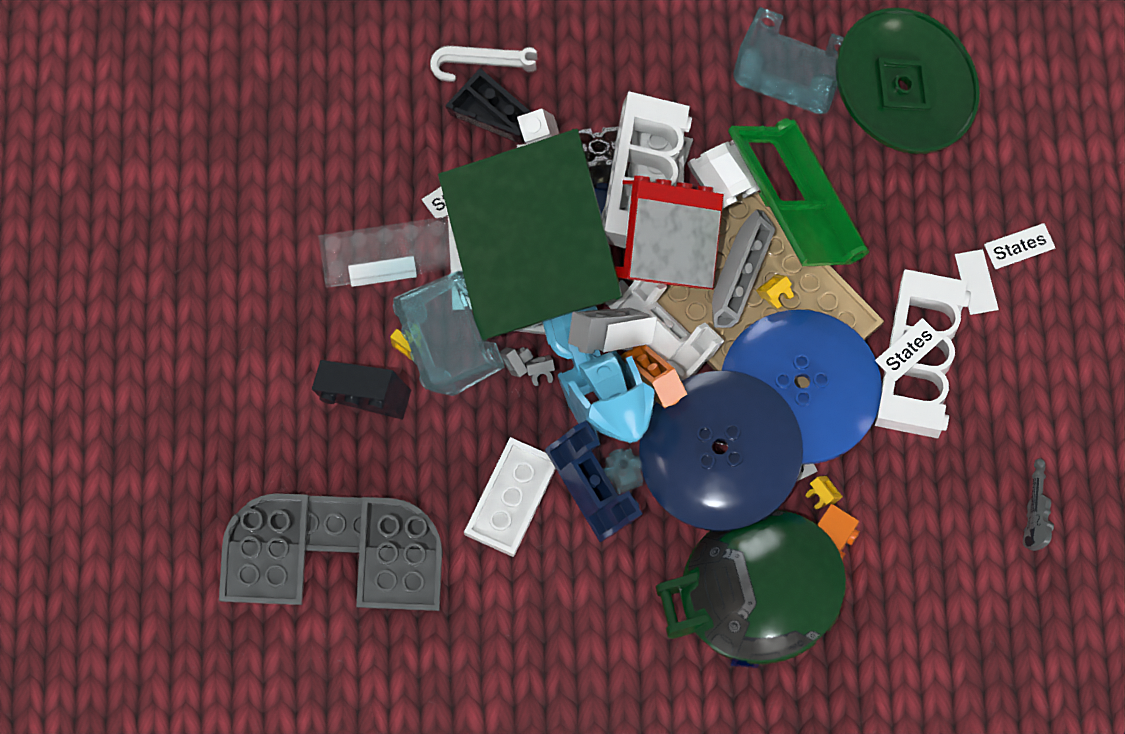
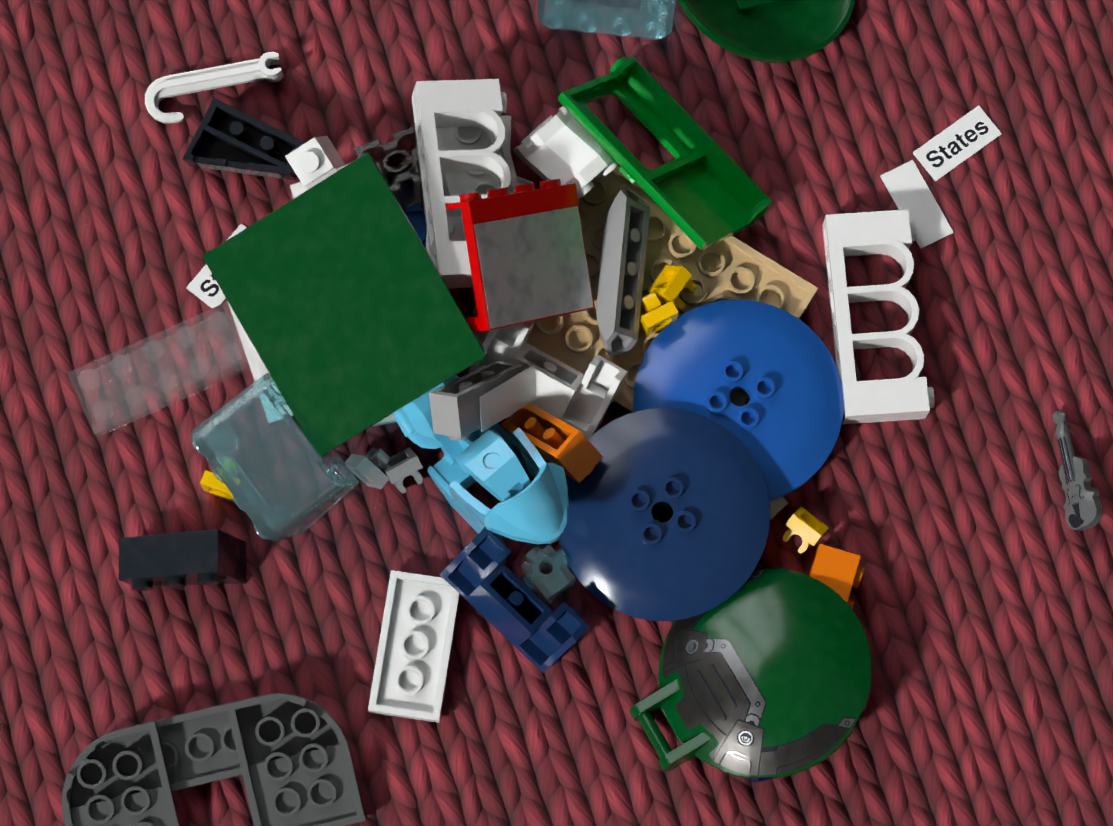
camera: 20 degrees left, 5 degrees up
(382, 267) = (161, 394): white sticker -> none
(757, 307) = (656, 315): none -> yellow tile
(909, 349) = (860, 317): white sticker -> none

